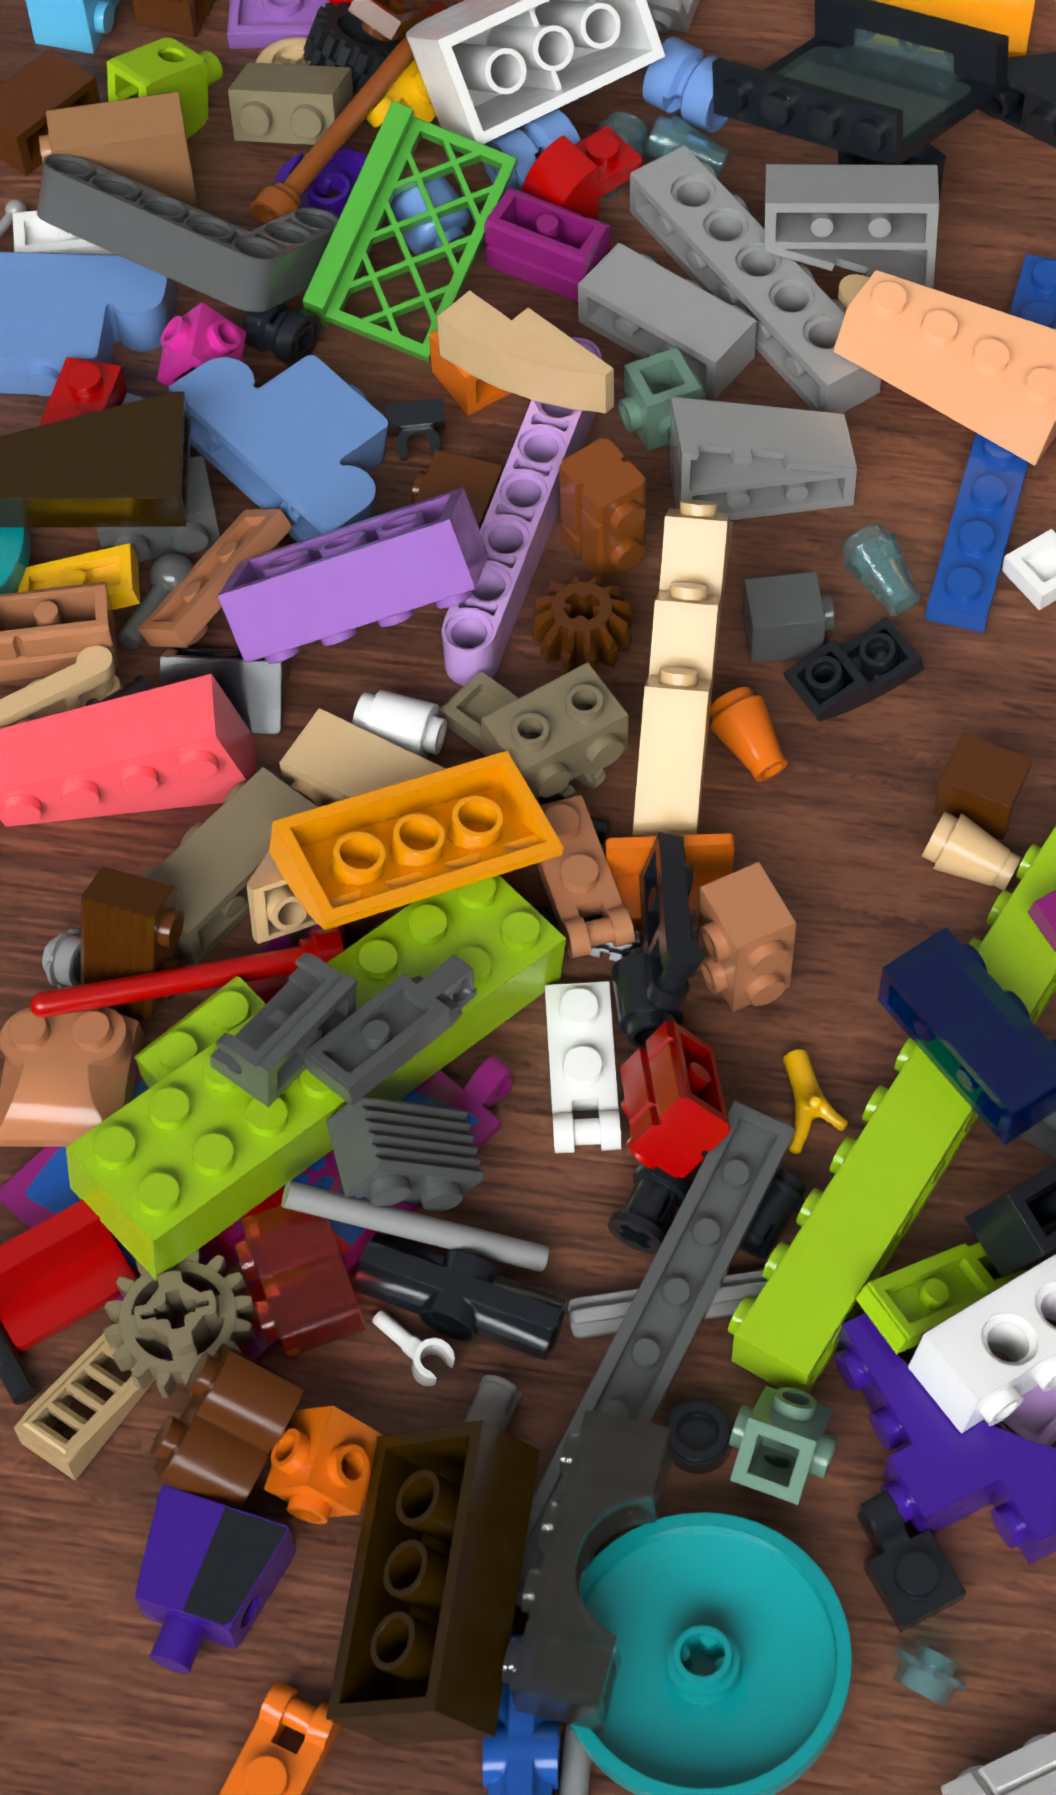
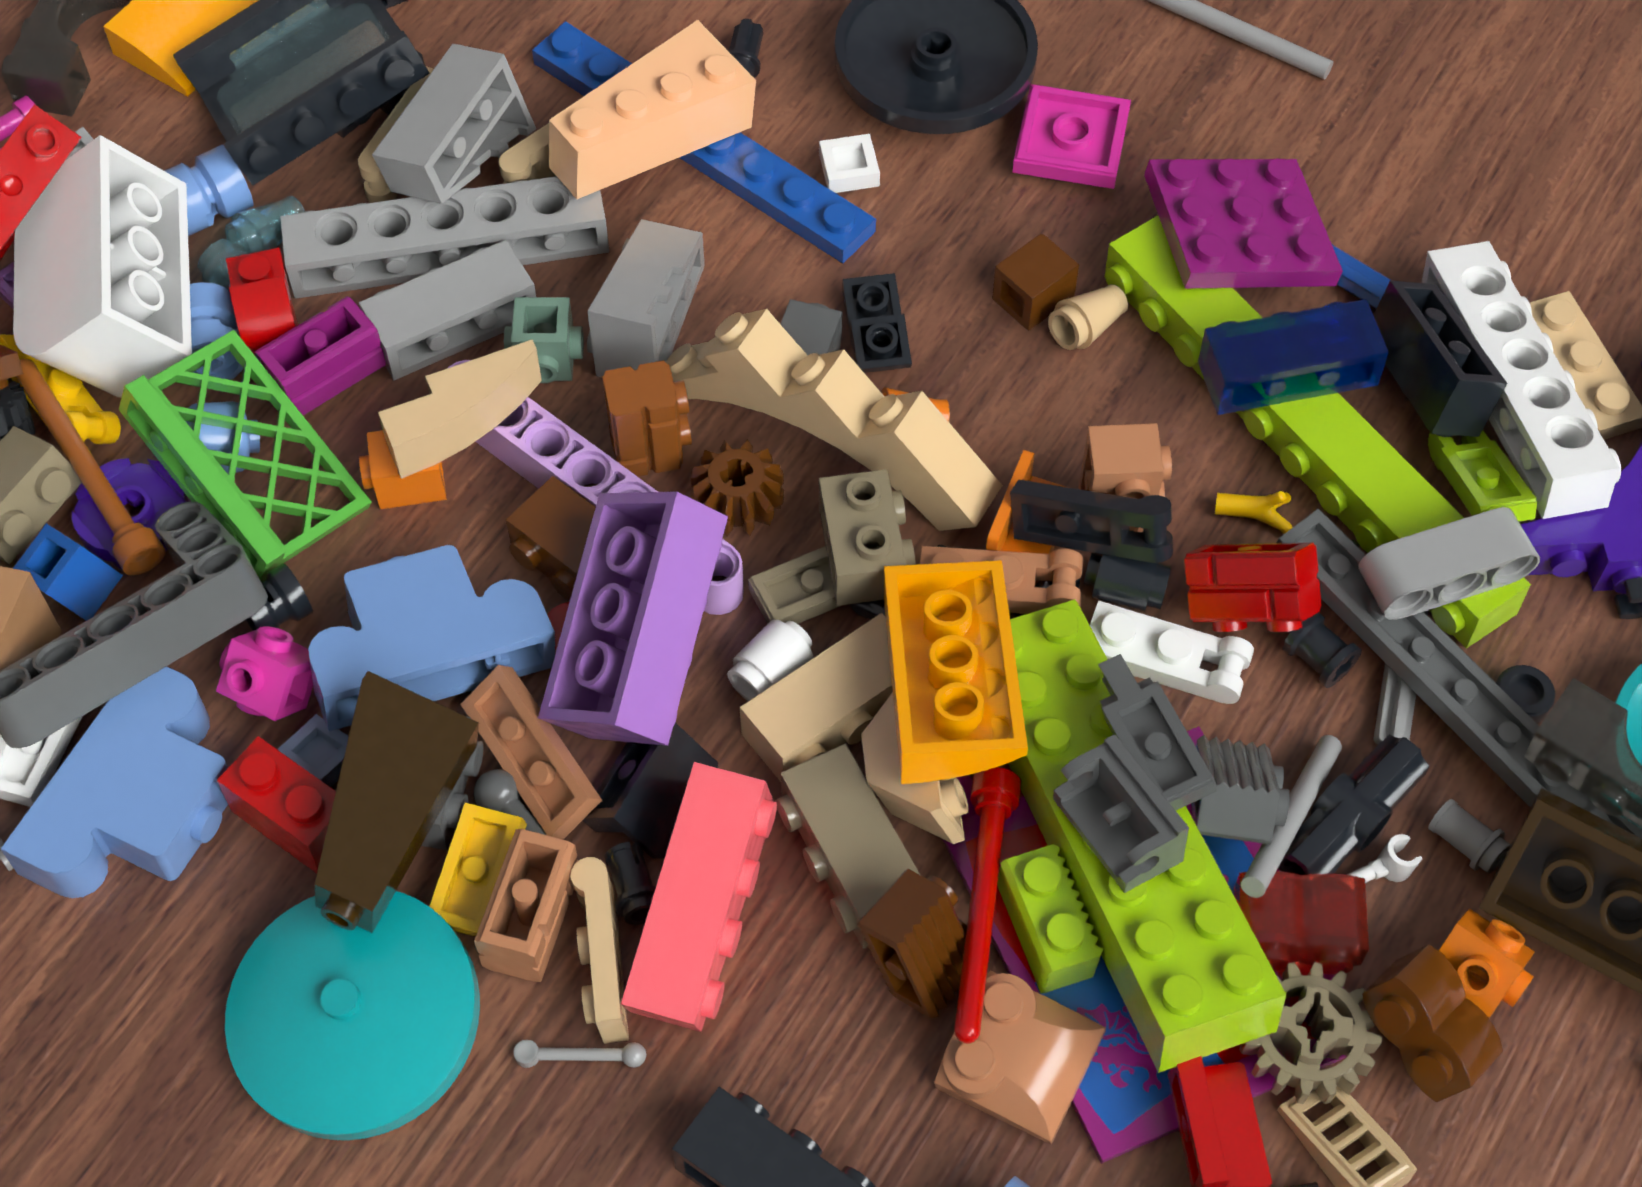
camera: 70 degrees left, 0 degrees up
(63, 959) = (889, 1013): light grey plate -> none
(207, 1574) = (1547, 1093): dark purple torso -> none
(230, 173) = (68, 572): none -> blue brick
(415, 420) = (449, 525): black tile -> none
(775, 1270) = (1448, 563): none -> light grey beam
(782, 1443) = (1569, 630): sand green brick -> none
(880, 567) = (790, 265): clear light blue cone -> none

